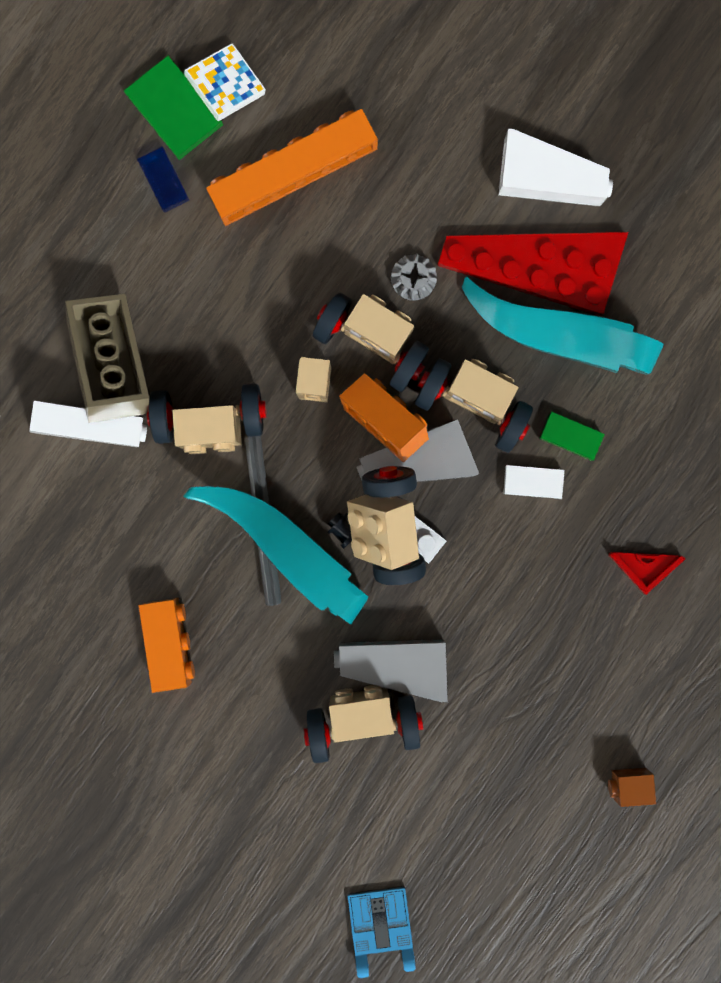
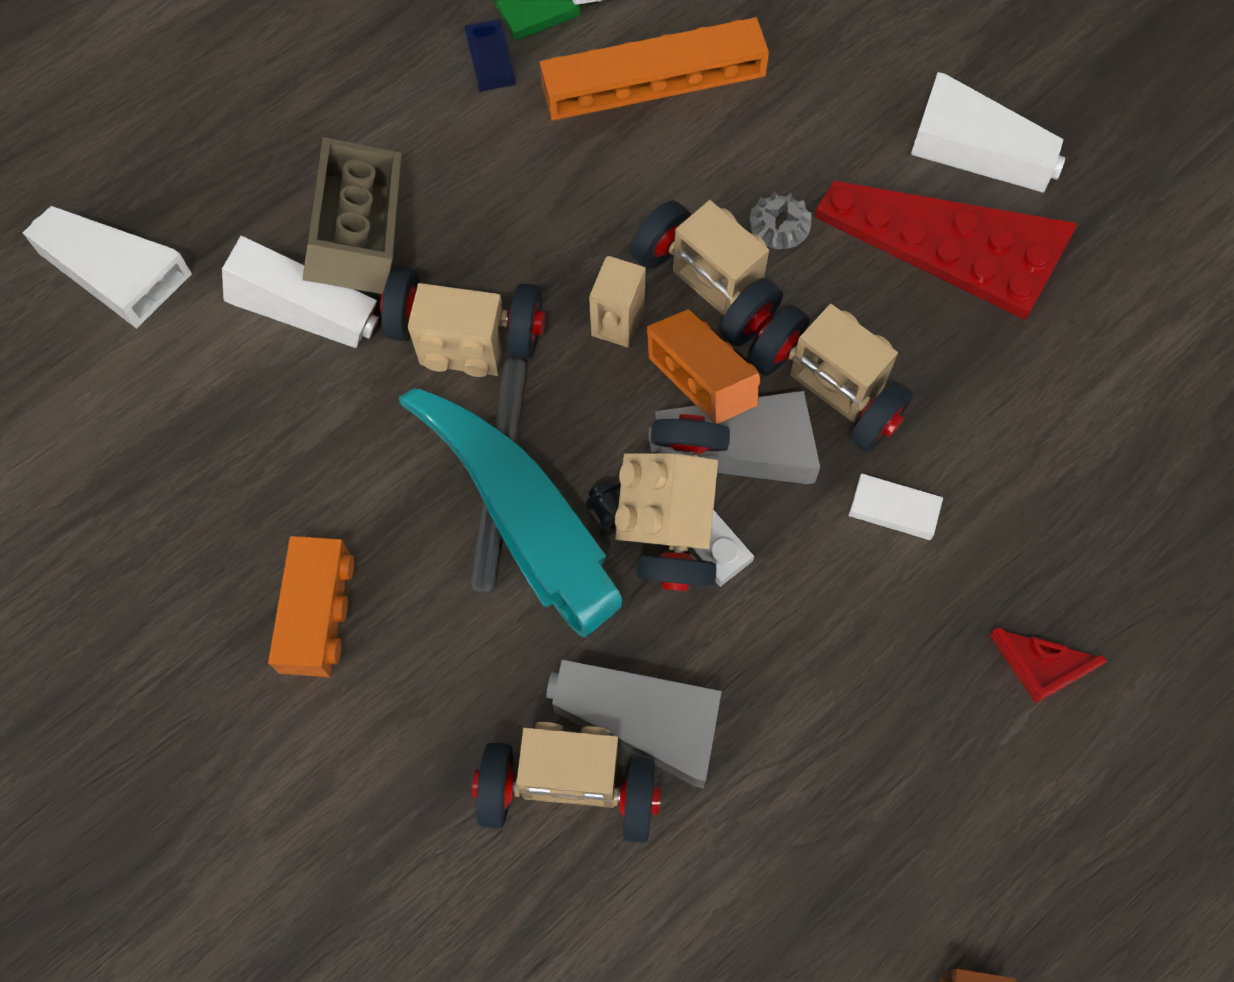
camera: 15 degrees right, 20 degrees down
(568, 334) = (983, 326): teal animal -> none
(571, 436) = (961, 458): green tile -> none

